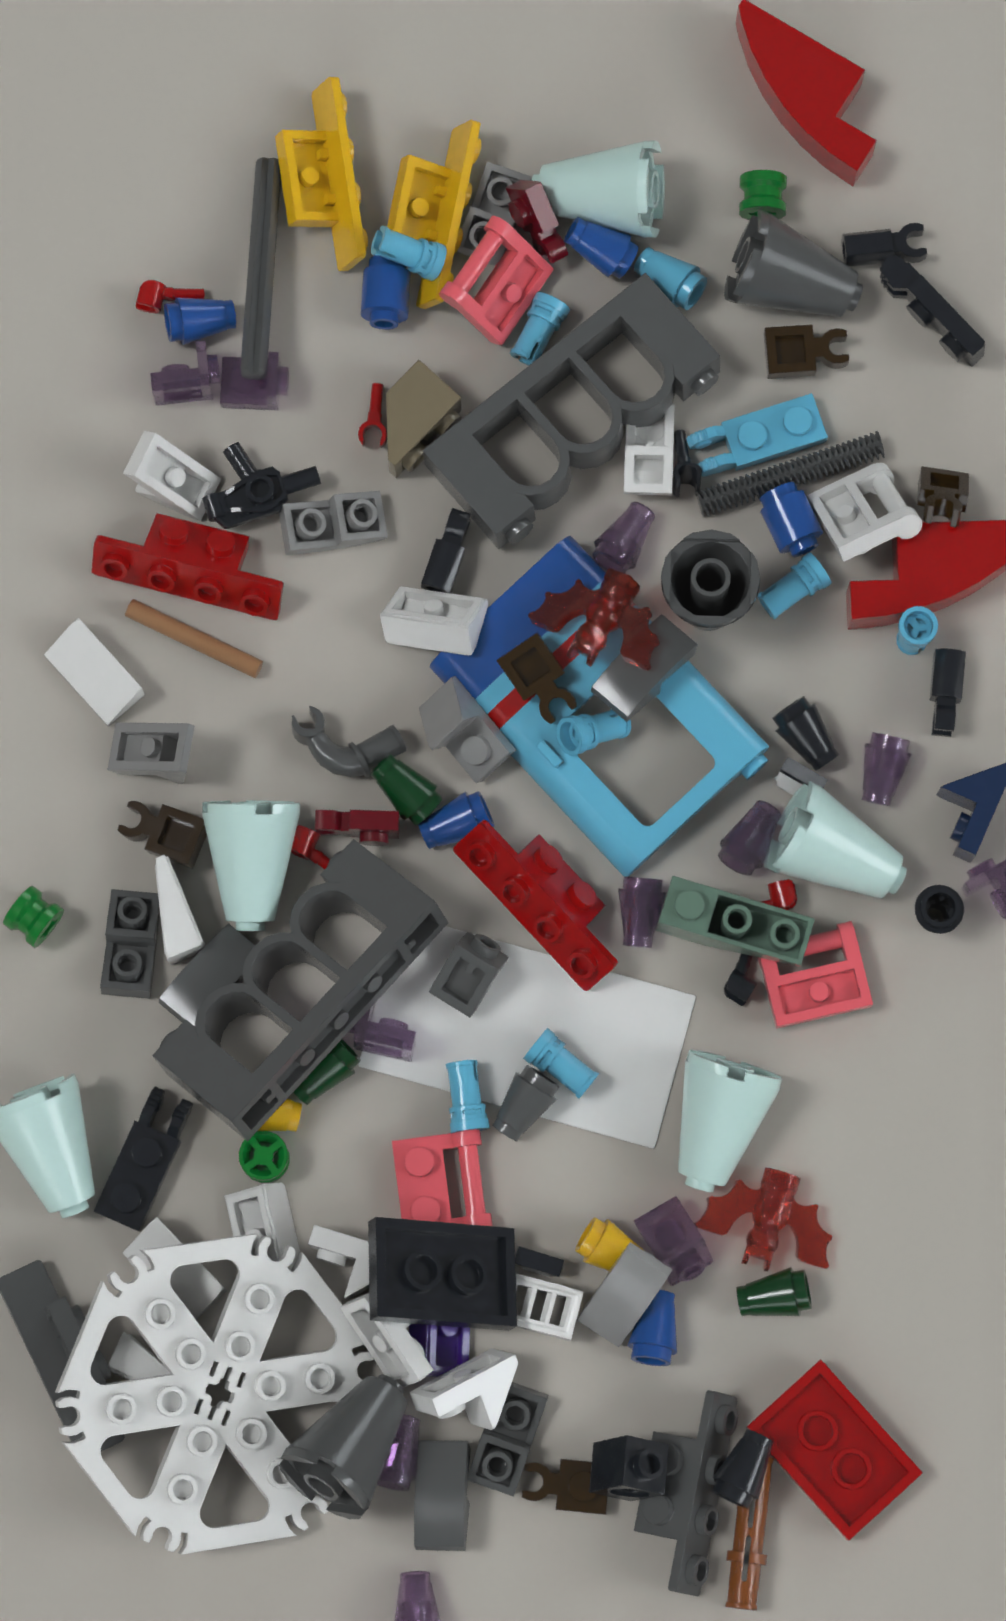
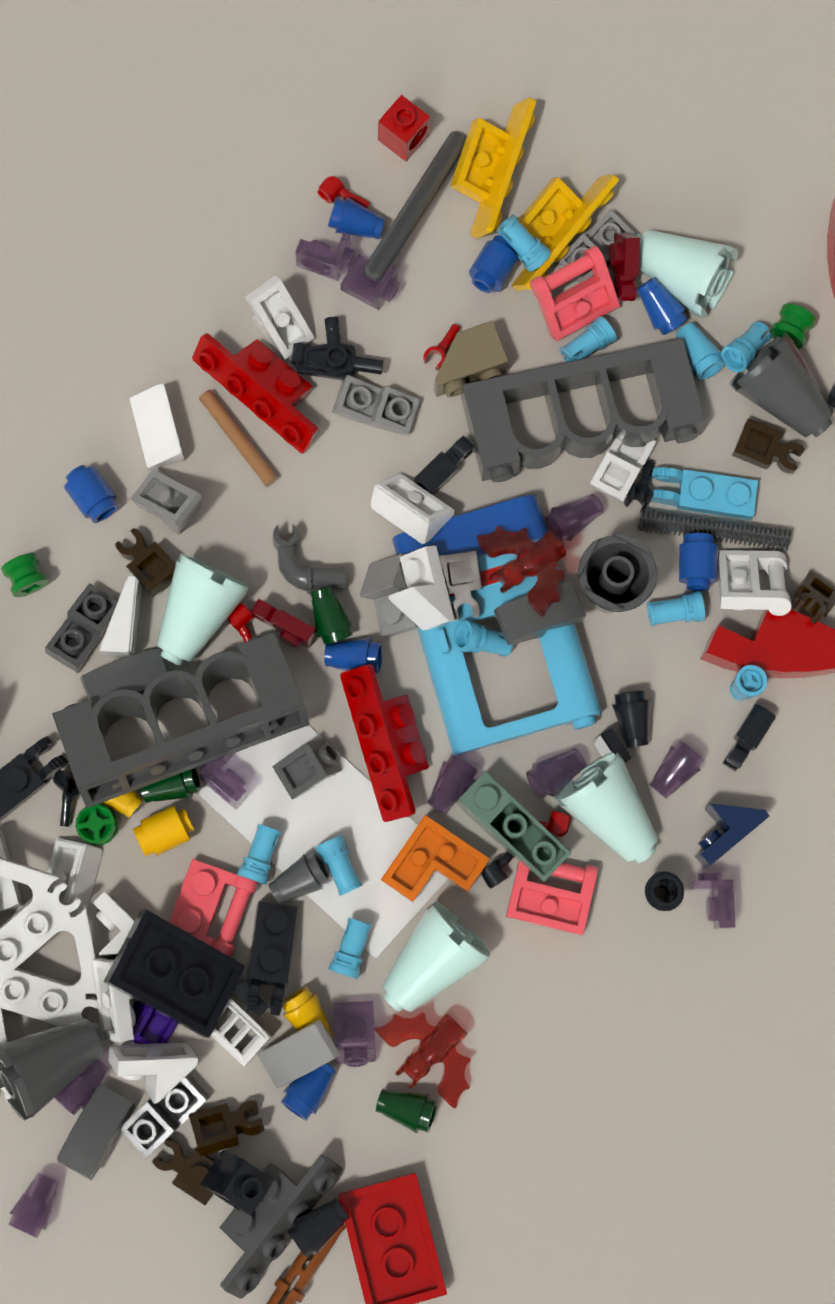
camera: 20 degrees right, 0 degrees up
(60, 786) = (91, 493): none -> blue brick
(200, 184) = (403, 128): none -> red brick
(212, 1130) = (69, 790): none -> black hand
(344, 1125) = (163, 831): none -> yellow brick
(505, 710) = (426, 594): none -> white slope
(535, 1201) = (270, 953): none -> black hinge
(579, 1421) = (218, 1127): none -> dark brown plate
(623, 1162) = (348, 958): none -> medium azure pin
(655, 995) = (431, 850): none -> orange plate
(720, 251) = (742, 350): none -> medium azure pin

